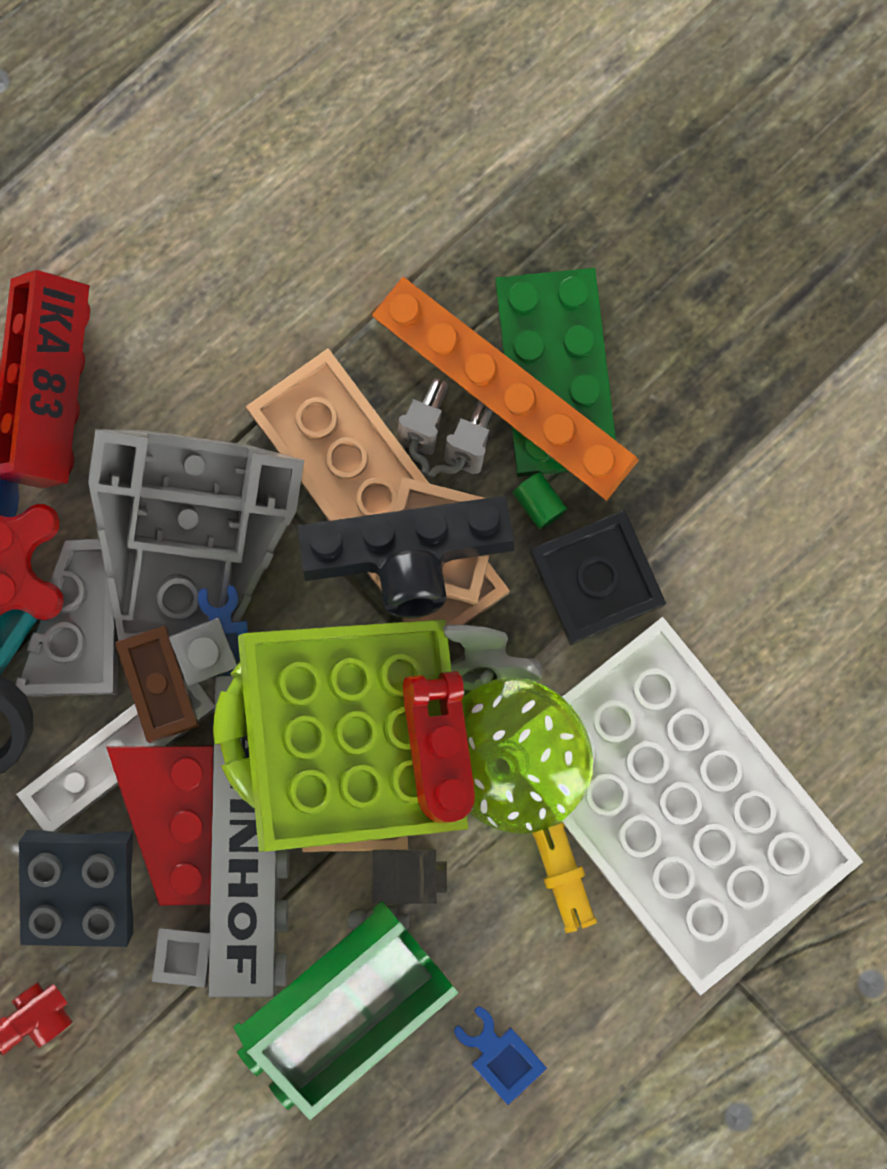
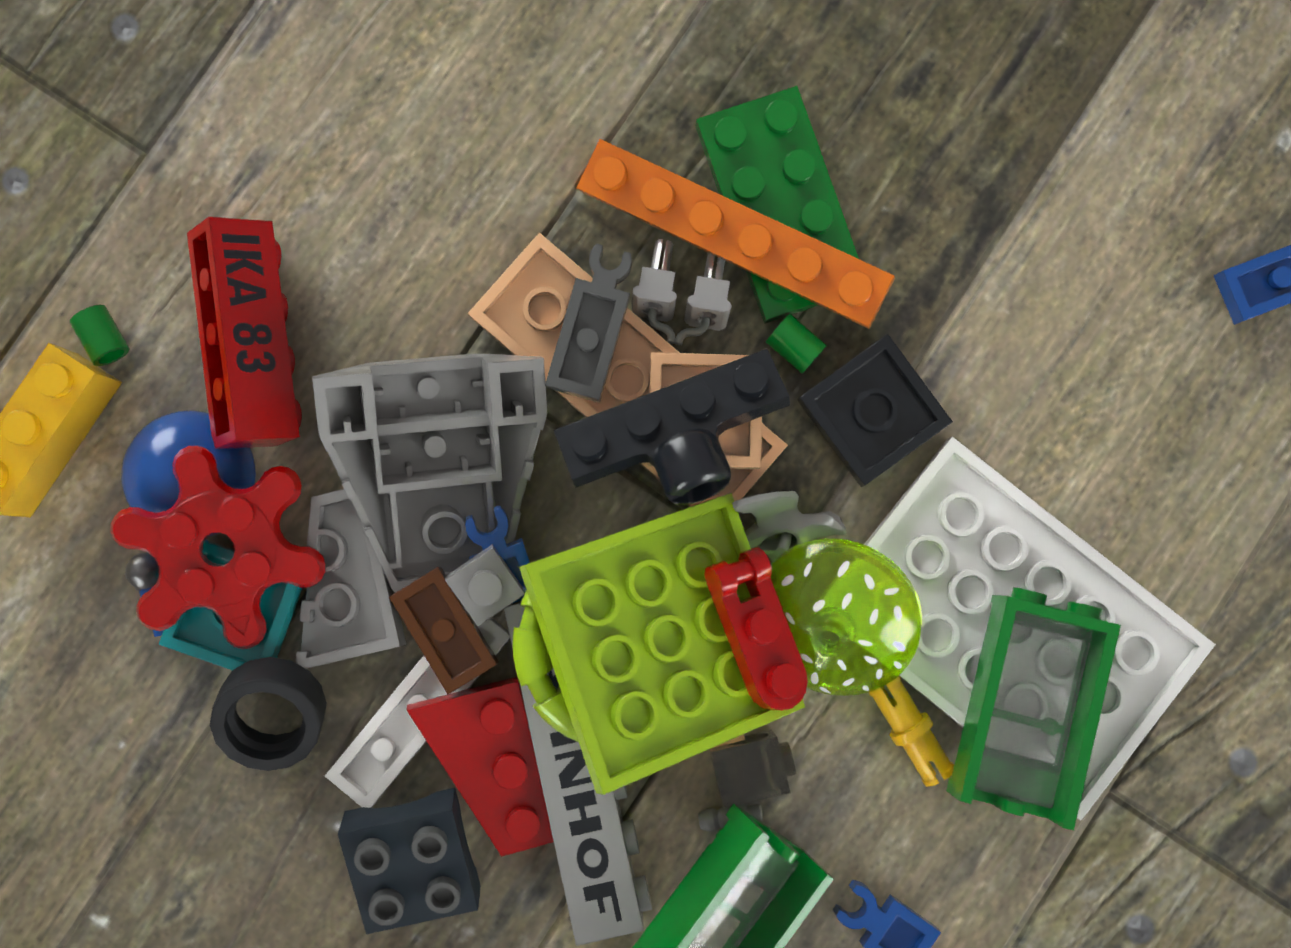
camera: 15 degrees left, 5 degrees up
(182, 958) = (537, 904): light grey plate -> none
(352, 445) = (590, 330): none -> dark grey plate
(676, 875) = (1035, 707): none -> door

